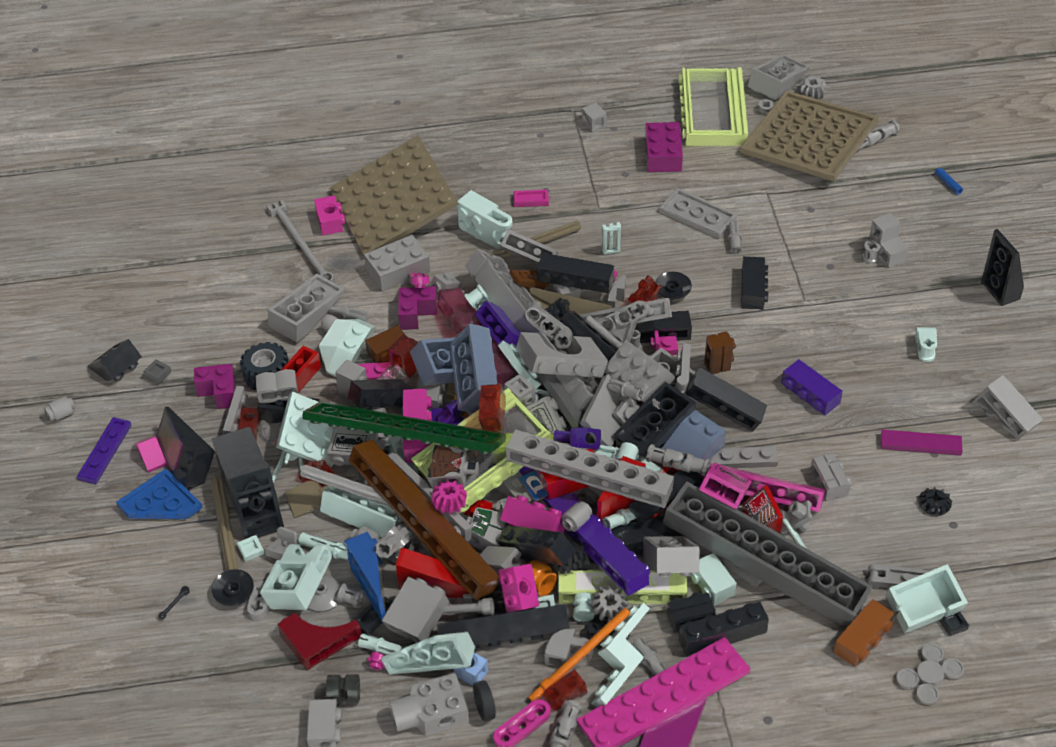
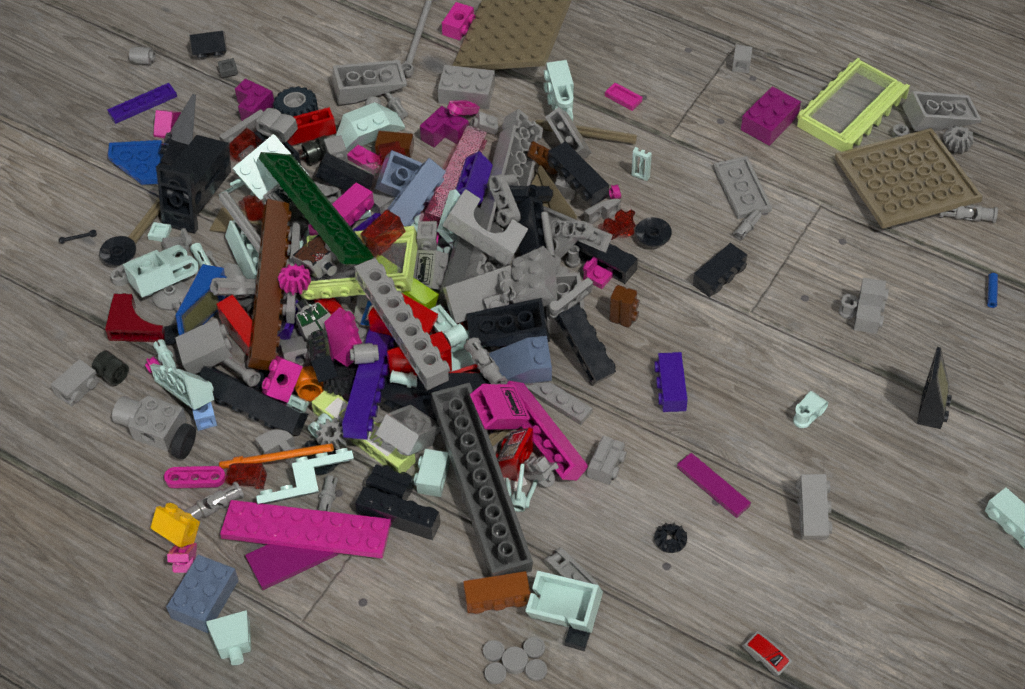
camera: 40 degrees right, 5 degrees up
(324, 387) = (314, 150): none -> pearl dark grey wheel
(477, 297) = (483, 145): light aqua piece -> none
(577, 437) = (431, 297): dark purple bracket -> none

